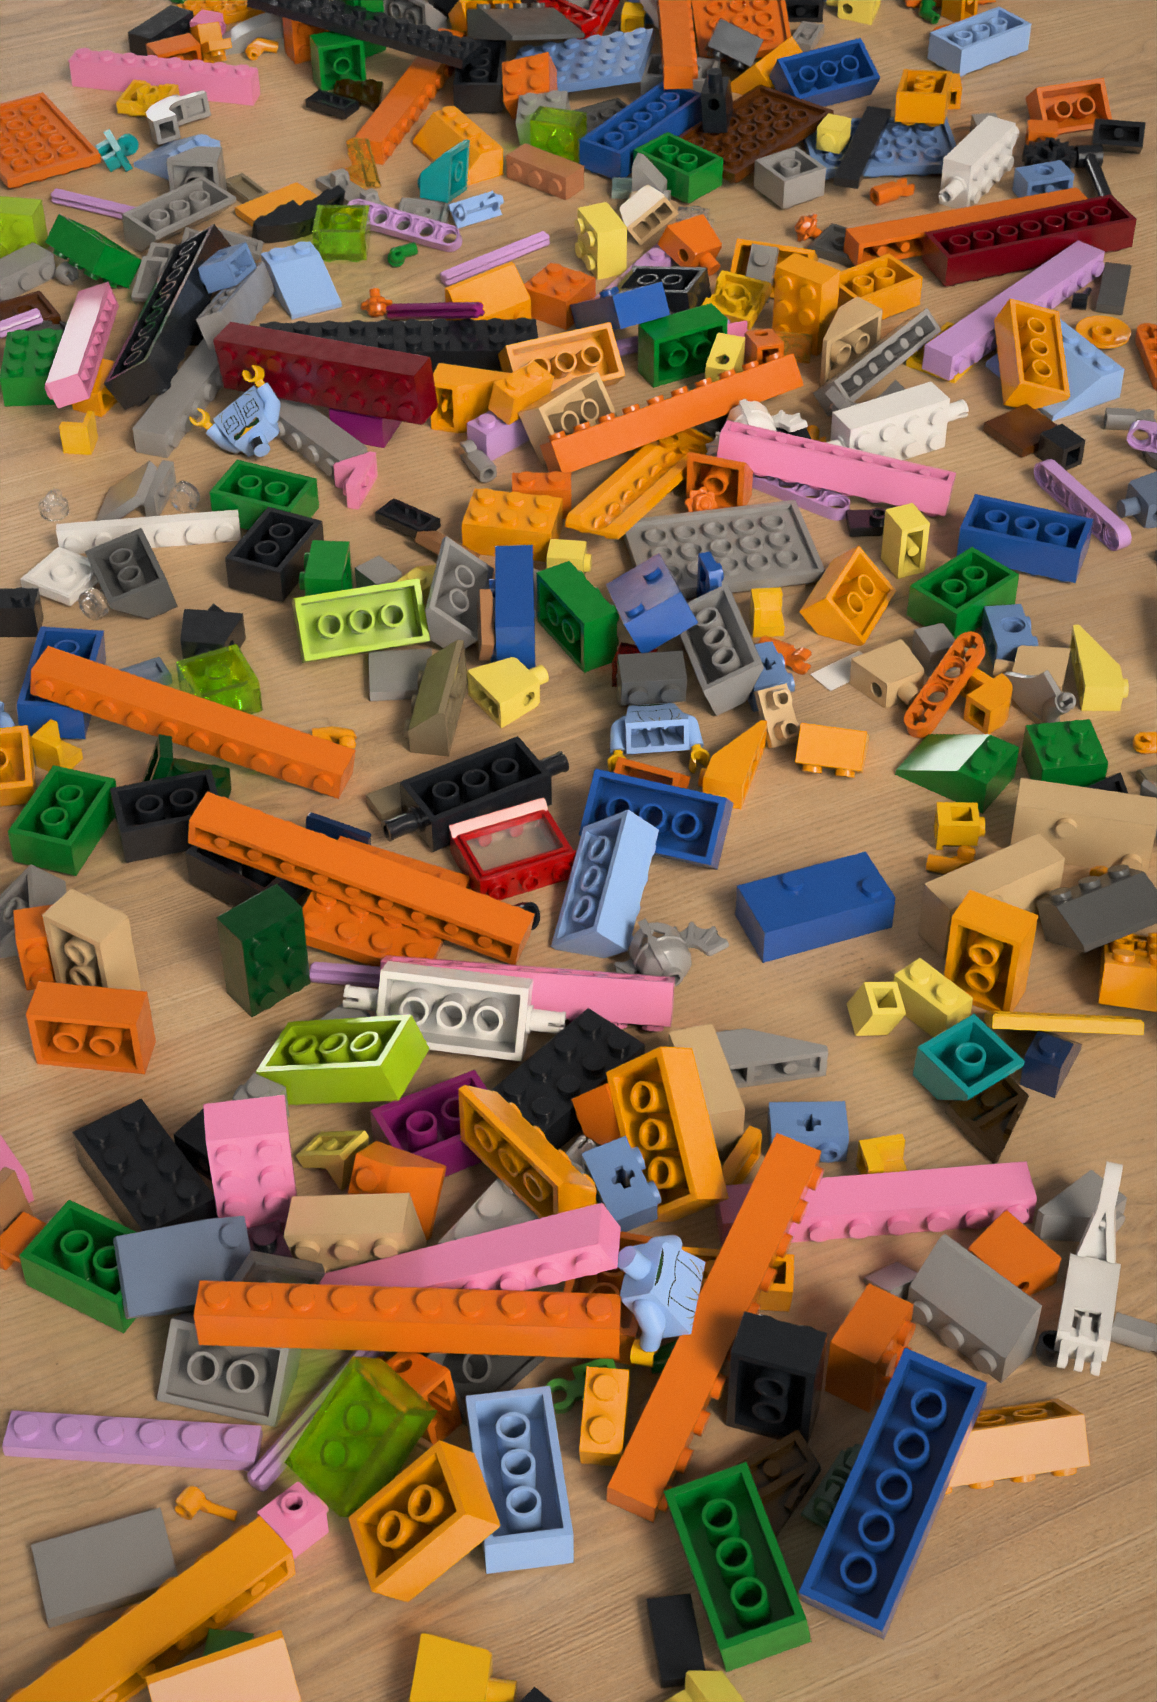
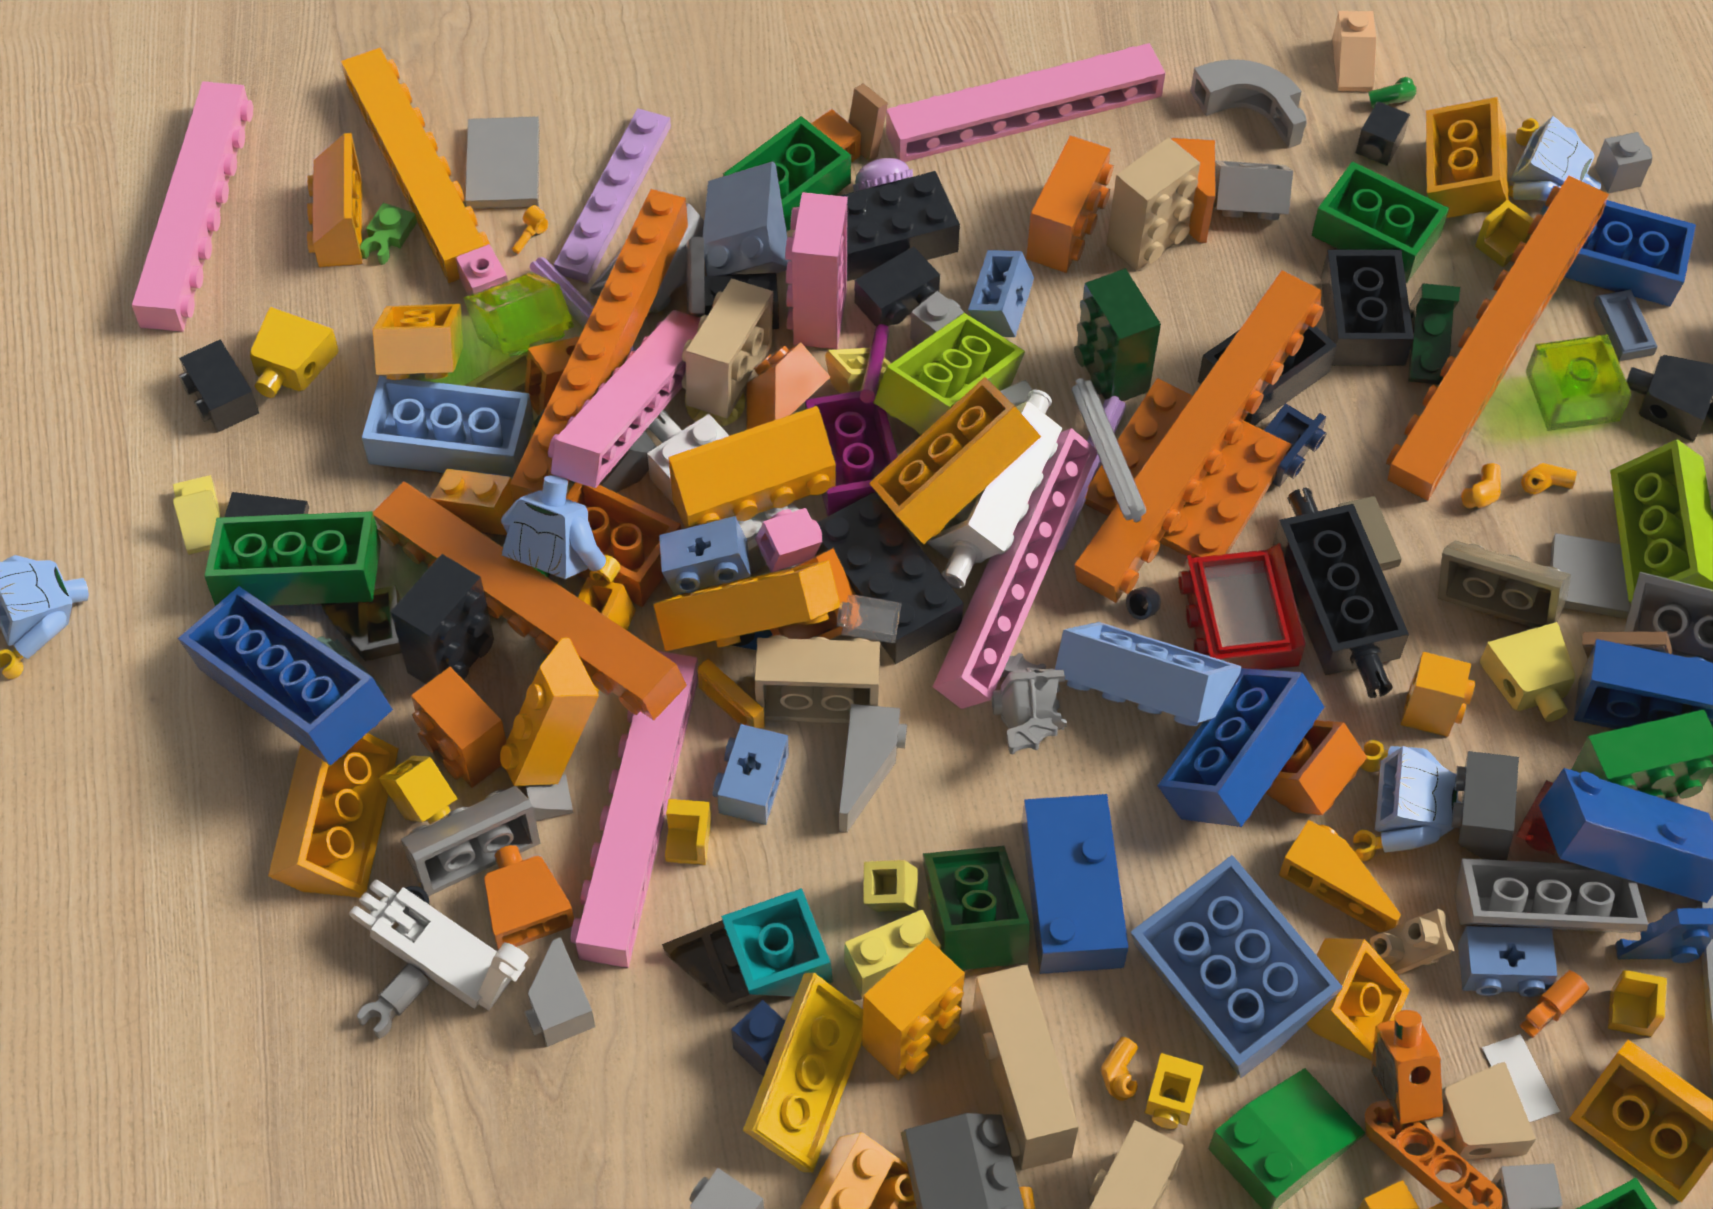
camera: 105 degrees right, 15 degrees up
(80, 1181) = (881, 172): none -> lavender hat
(213, 1060) = (1002, 291): none -> medium blue brick
(313, 707) = (1545, 476): none -> light orange arm
(346, 1123) = (874, 364): none -> magenta bar
(388, 941) = (1108, 450): none -> light grey axle
(464, 1007) = (954, 460): none -> light orange brick
(560, 722) = (1437, 694): none -> light orange brick
(575, 1129) = (788, 539): none -> bright pink brick
(641, 1036) = (869, 618): none -> clear brick
(841, 1250) = (550, 719): none -> light orange slope
(851, 792) = (1236, 965): none -> medium blue slope
(861, 952) = (977, 907): none -> dark green slope
(882, 700) = (1403, 1050): none -> orange torso
(959, 1339) = (419, 789): none -> yellow brick

